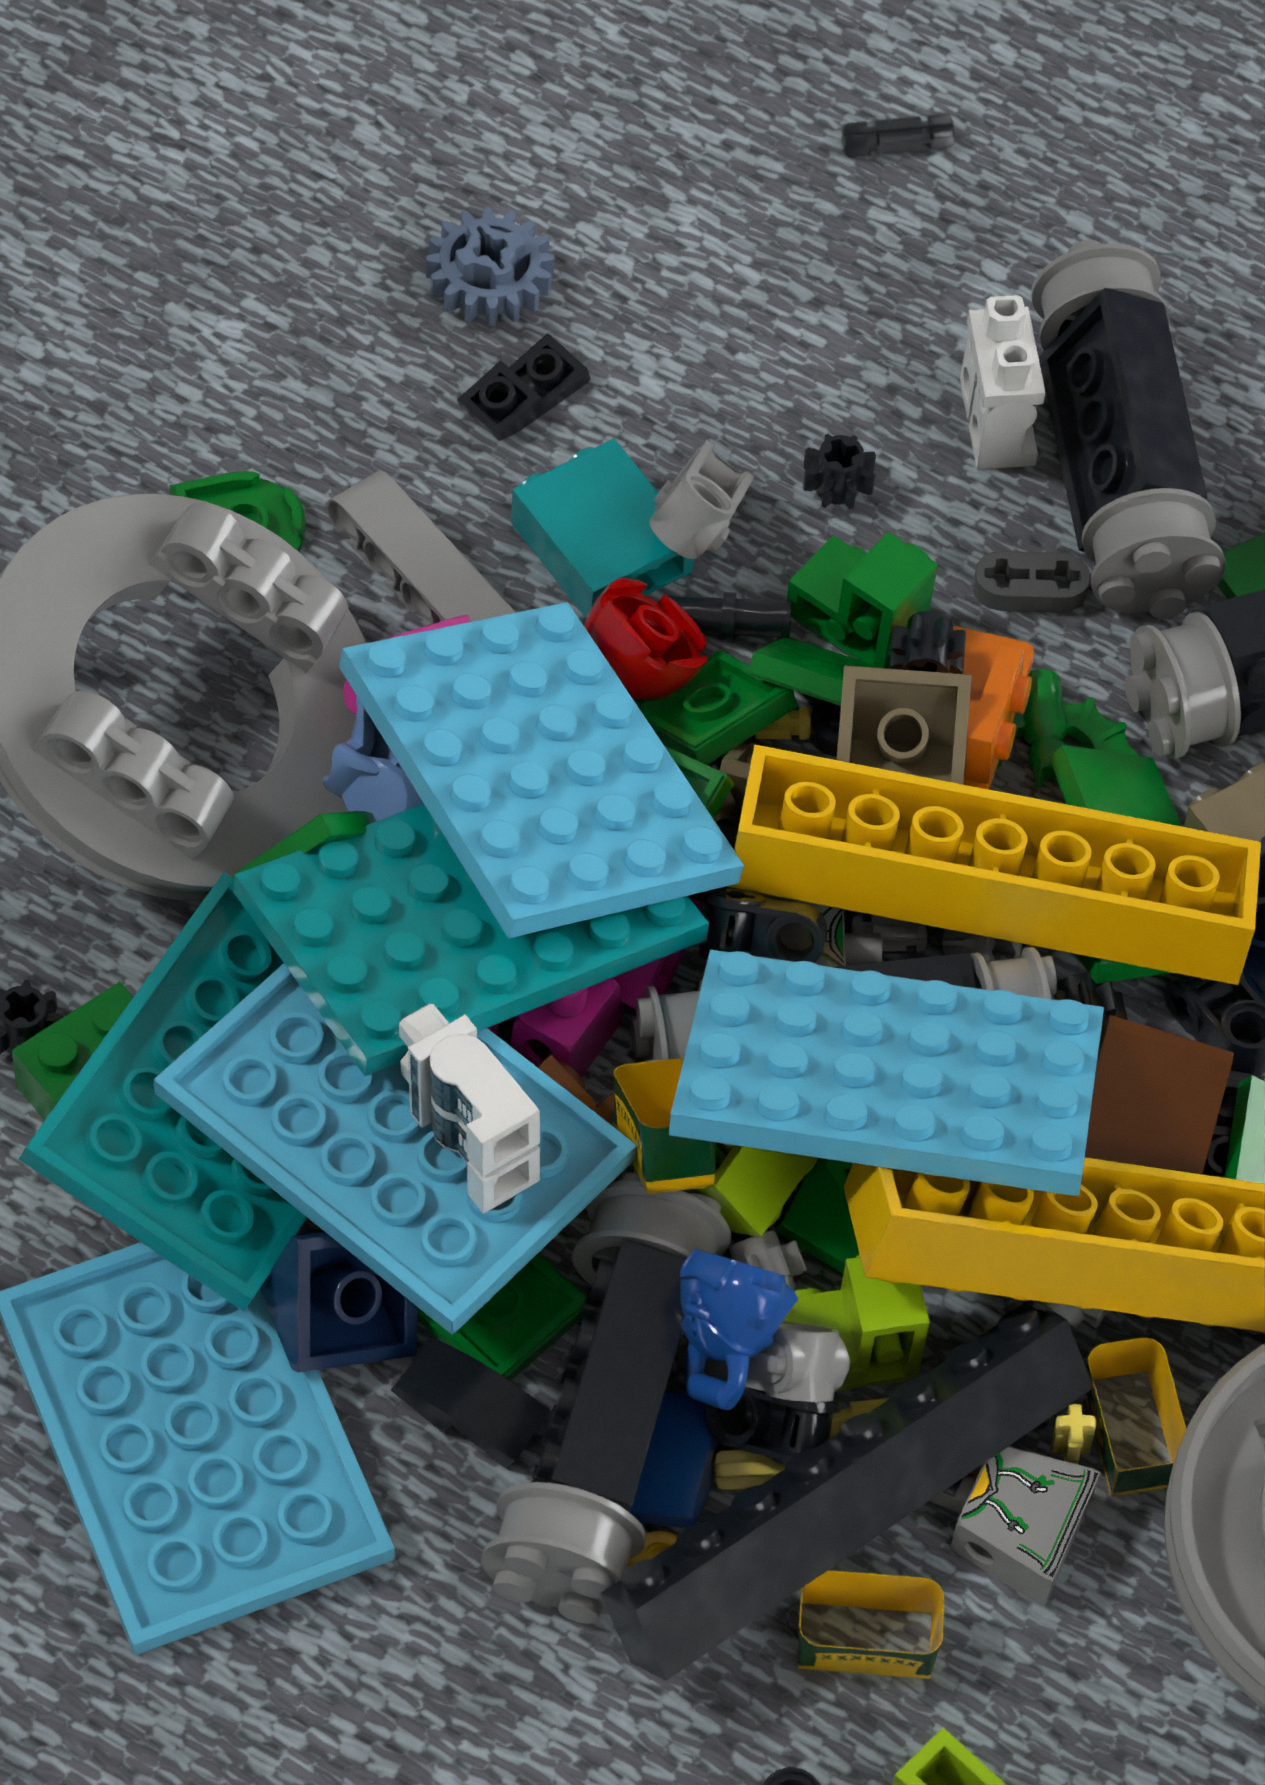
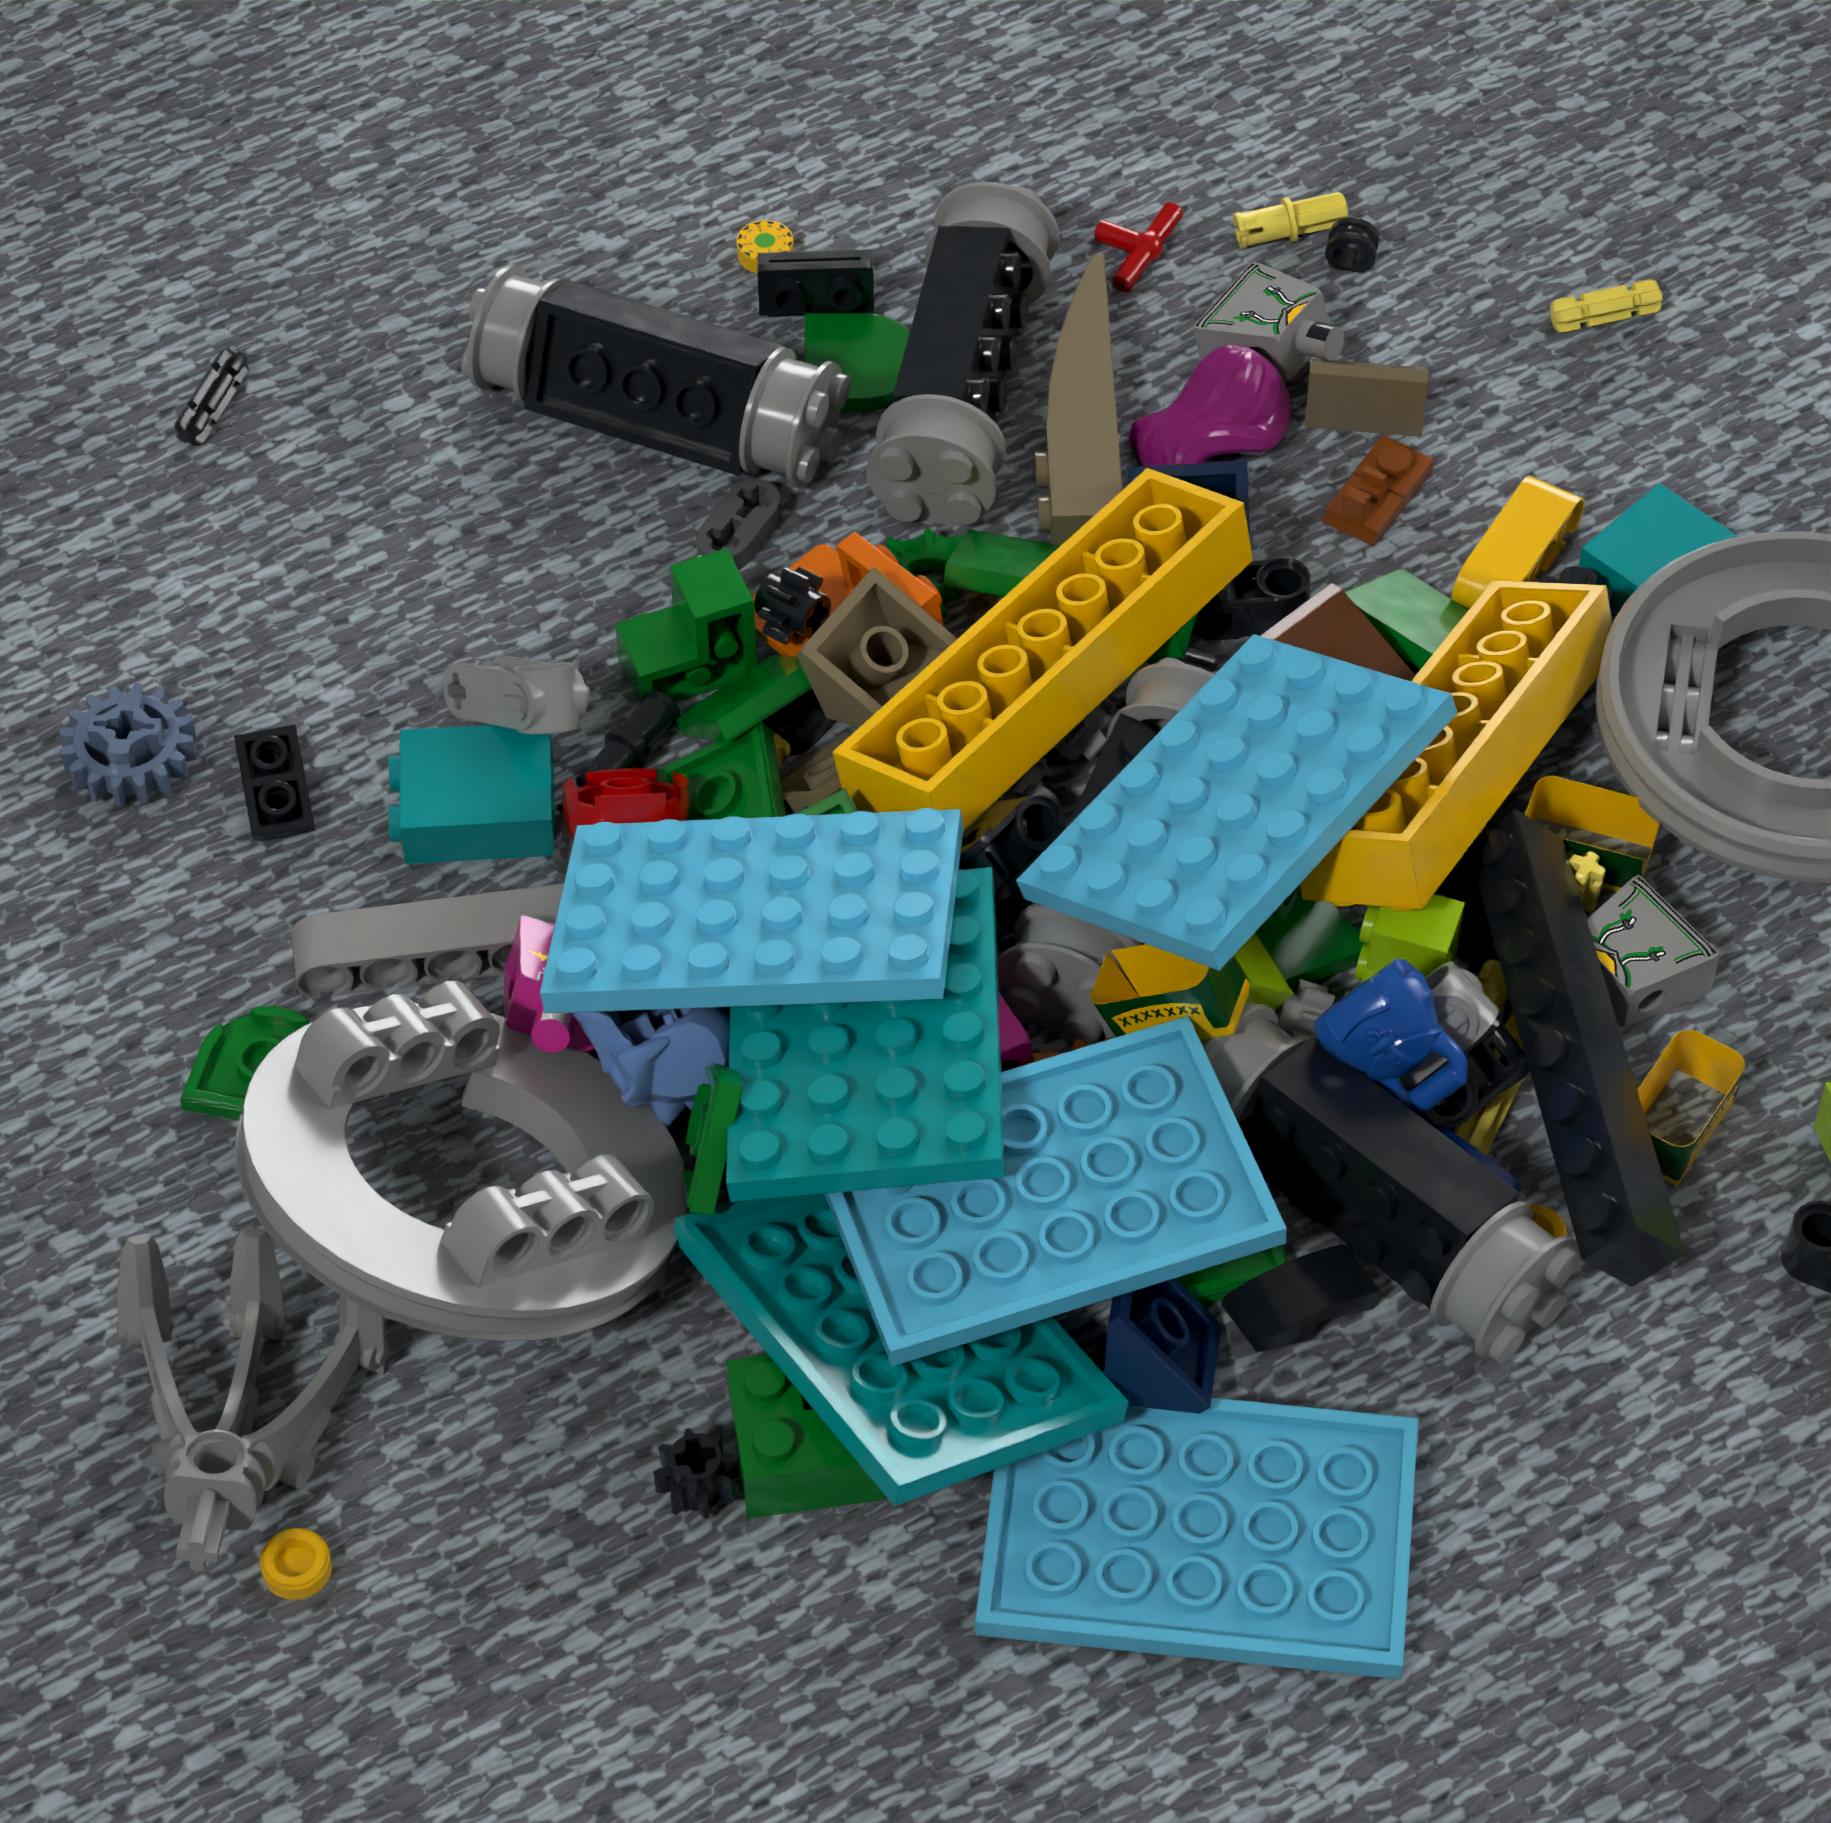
camera: 55 degrees left, 5 degrees down
(471, 1105) = (1101, 1097): white hips -> none
(839, 470) = (537, 597): black gear -> none
(1002, 384) = (552, 430): white hips -> none

